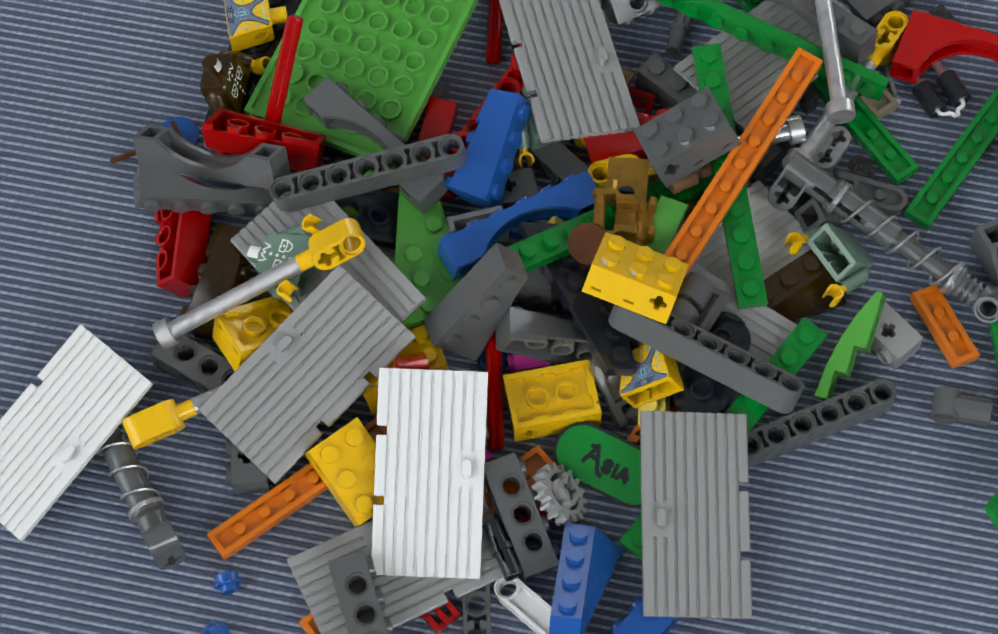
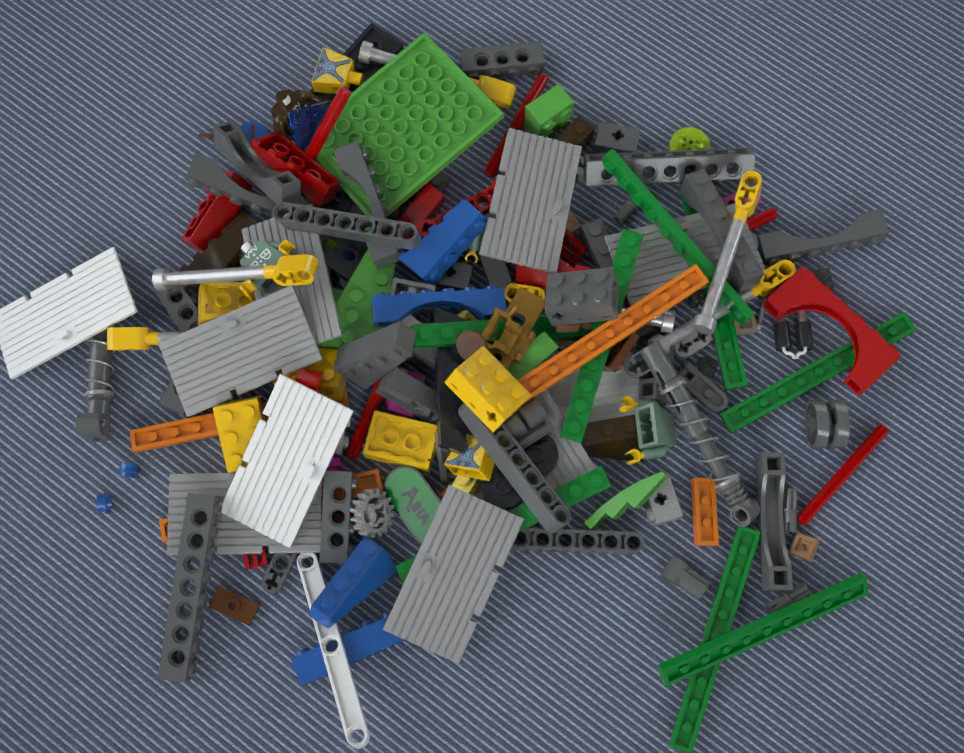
camera: 25 degrees right, 10 degrees up
(253, 83) = (306, 121): none -> clear blue wing
(502, 549) = (313, 535): black pin -> none
(758, 185) = (619, 352): none -> reddish brown wing

